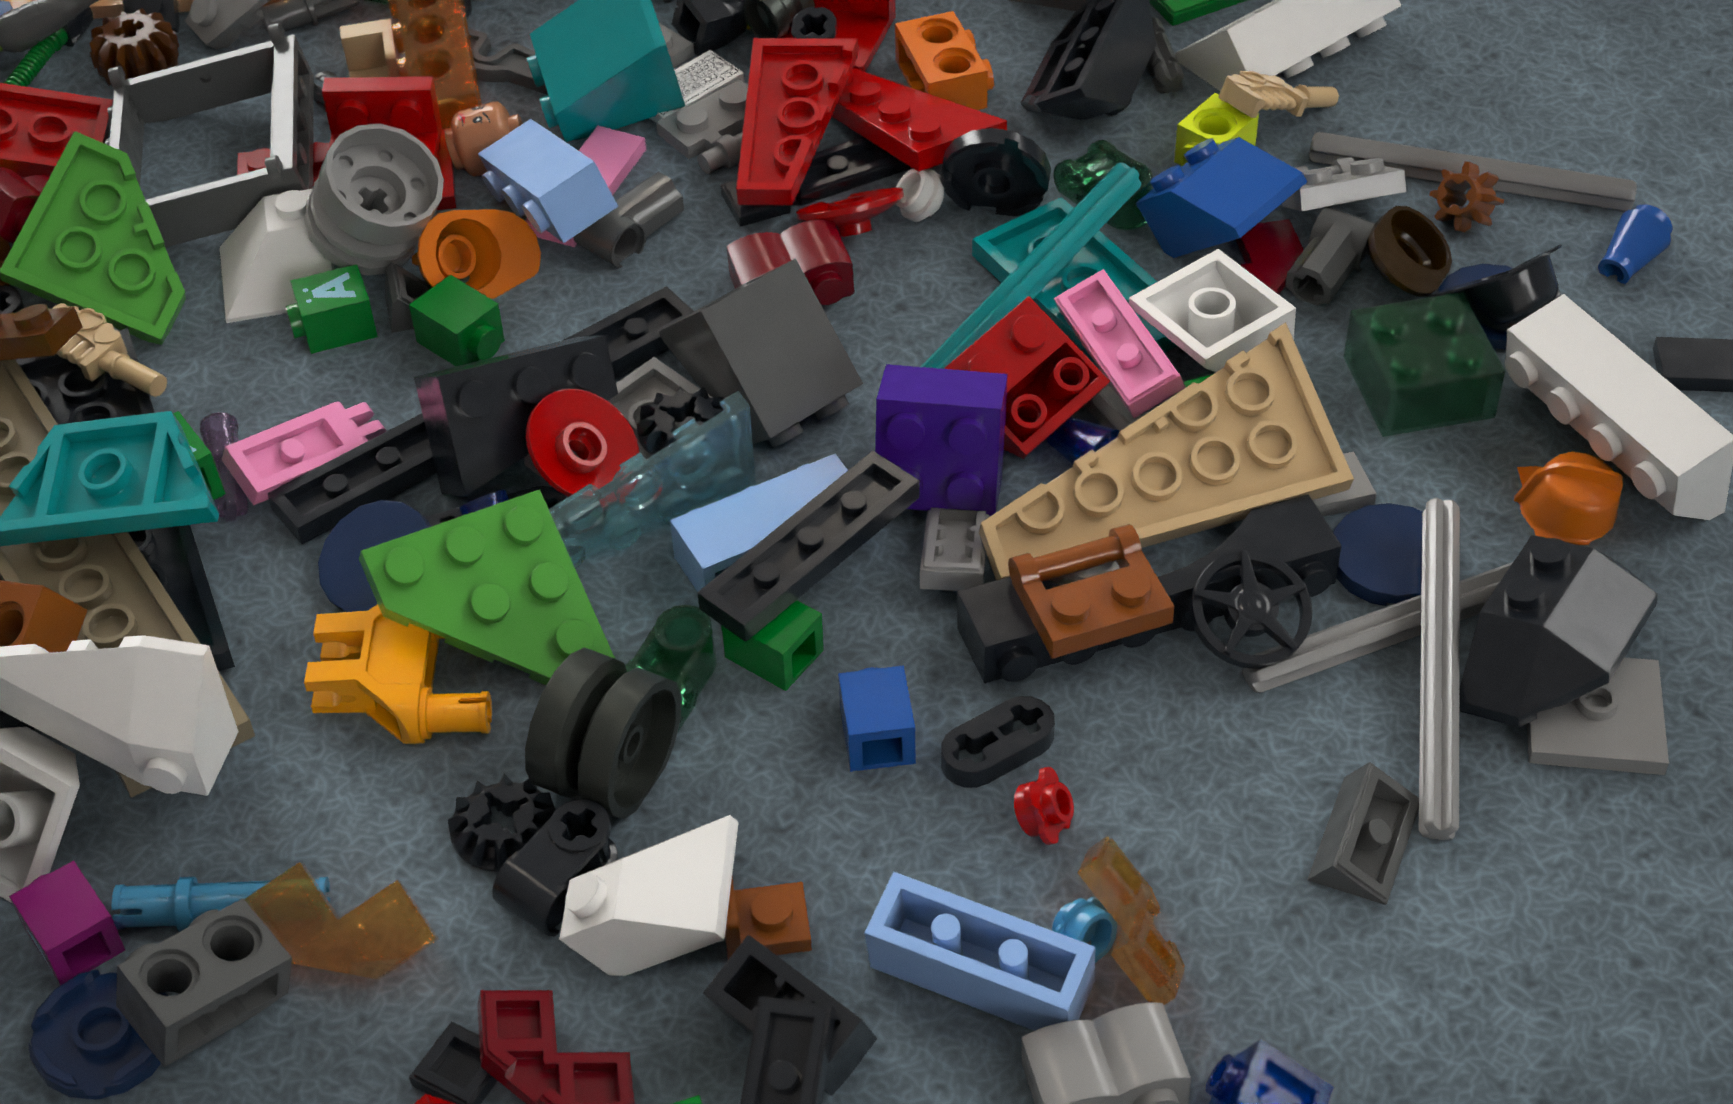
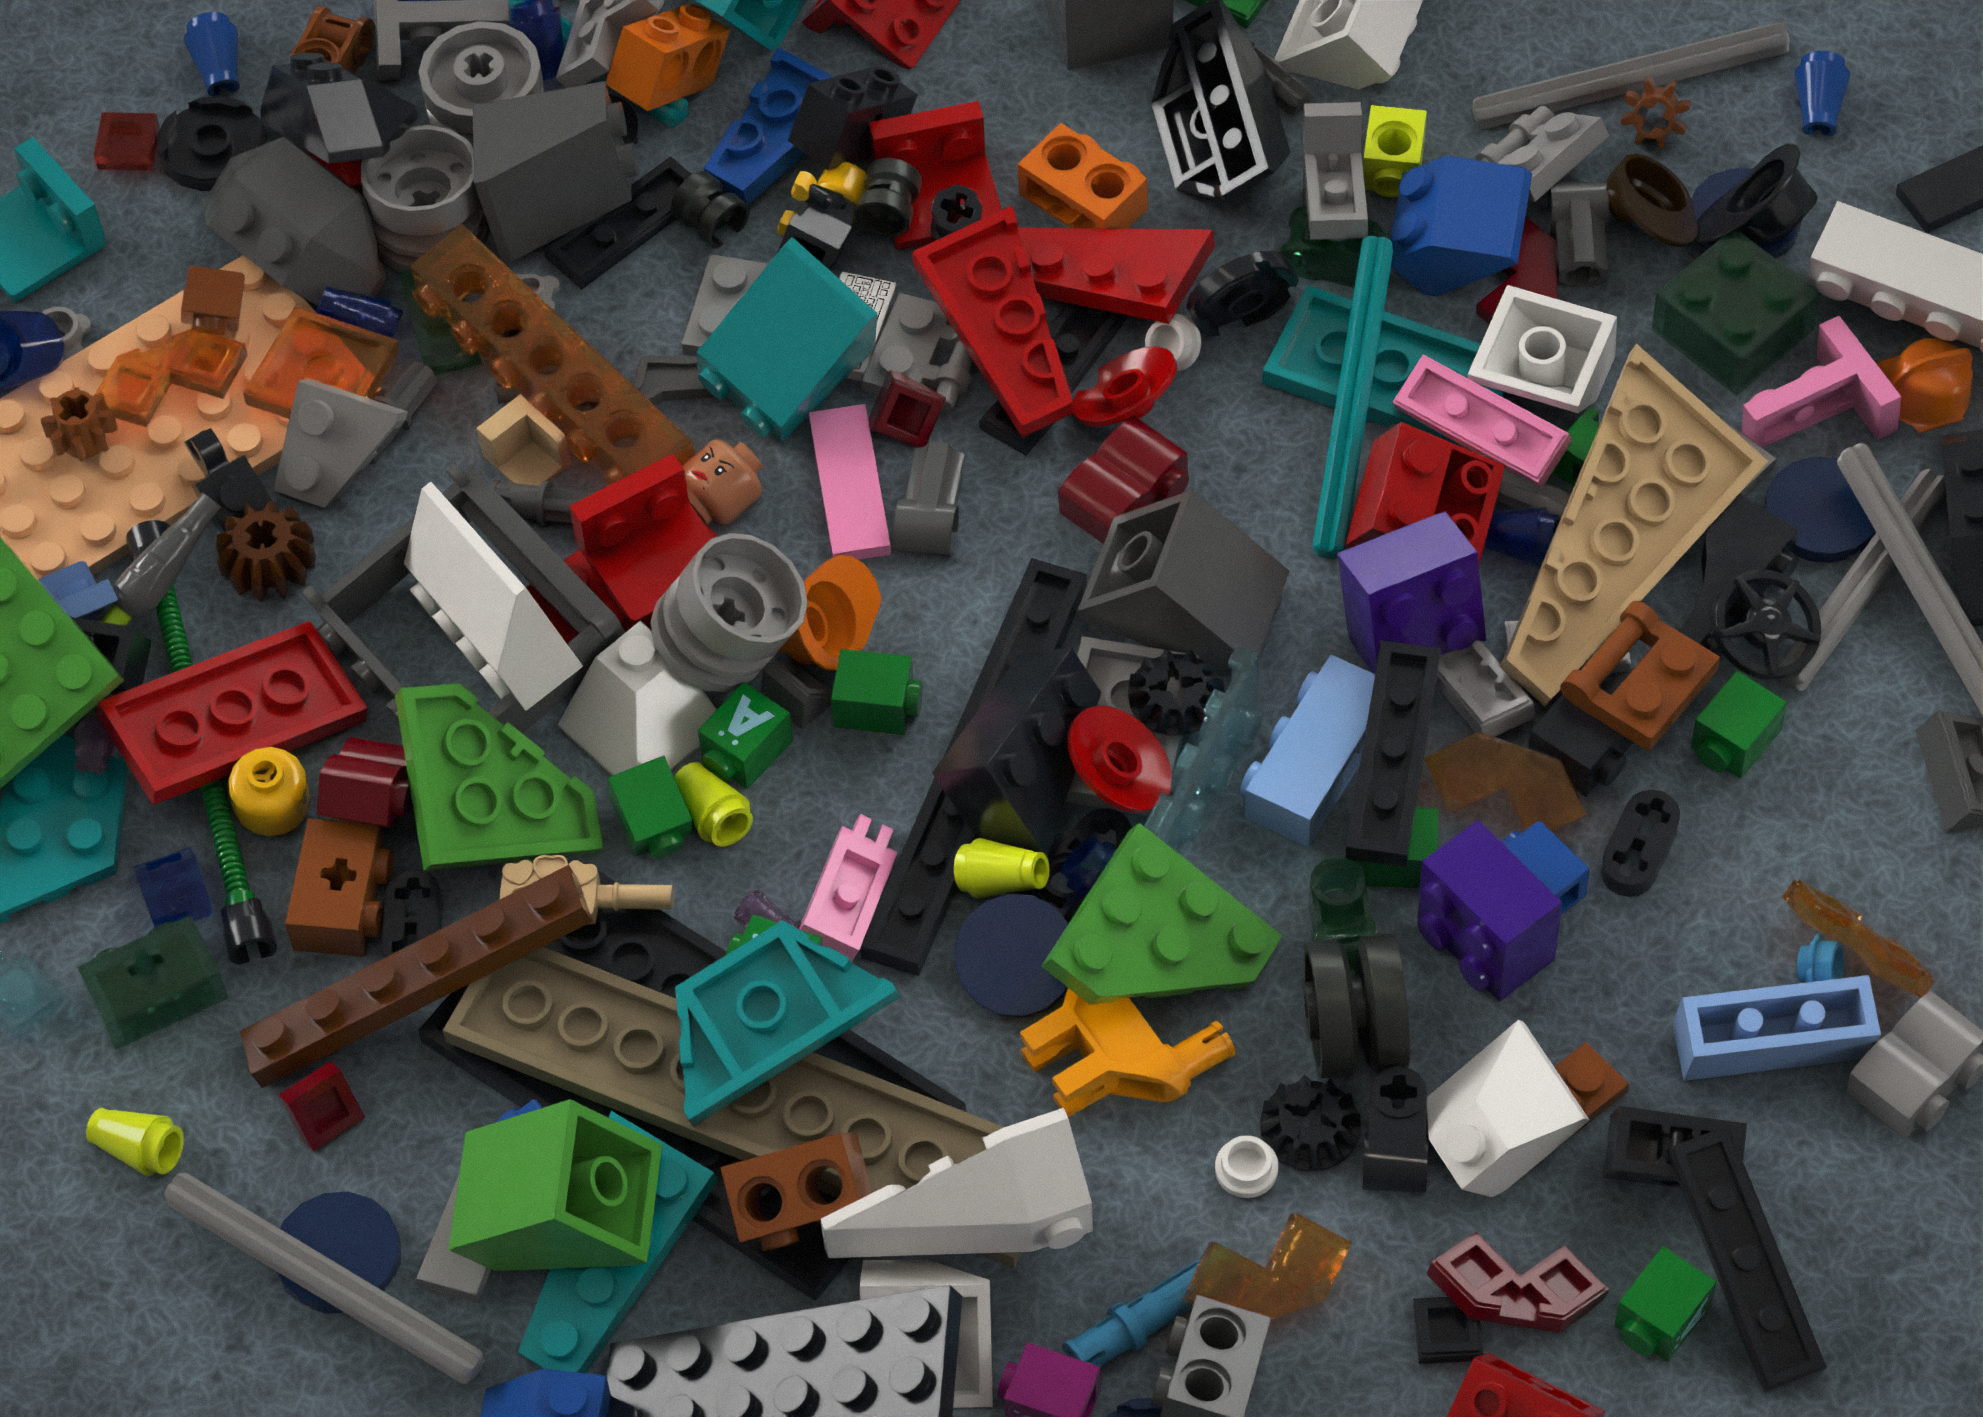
camera: 30 degrees left, 10 degrees up
(212, 321) = (650, 808): none -> green brick
(214, 121) = (483, 605): none -> white slope
(265, 336) = (714, 805): none -> neon yellow cone
(414, 828) = (1246, 1167): none -> white plate
(423, 486) = (998, 869): none -> neon yellow cone
(546, 181) = (842, 505): light blue brick -> none
(668, 149) = (906, 410): none -> dark red slope
(787, 716) = (1487, 911): none -> dark purple brick
(934, 638) = (1486, 765): none -> clear orange tile
(1044, 806) = (1721, 879): red plate -> none
(1143, 122) = (1334, 171): none -> light grey bracket
(1163, 685) = (1737, 725): none -> green brick
(1257, 91) = (1417, 84): tan piece -> none
(1454, 460) = (1842, 382): none -> bright pink bracket

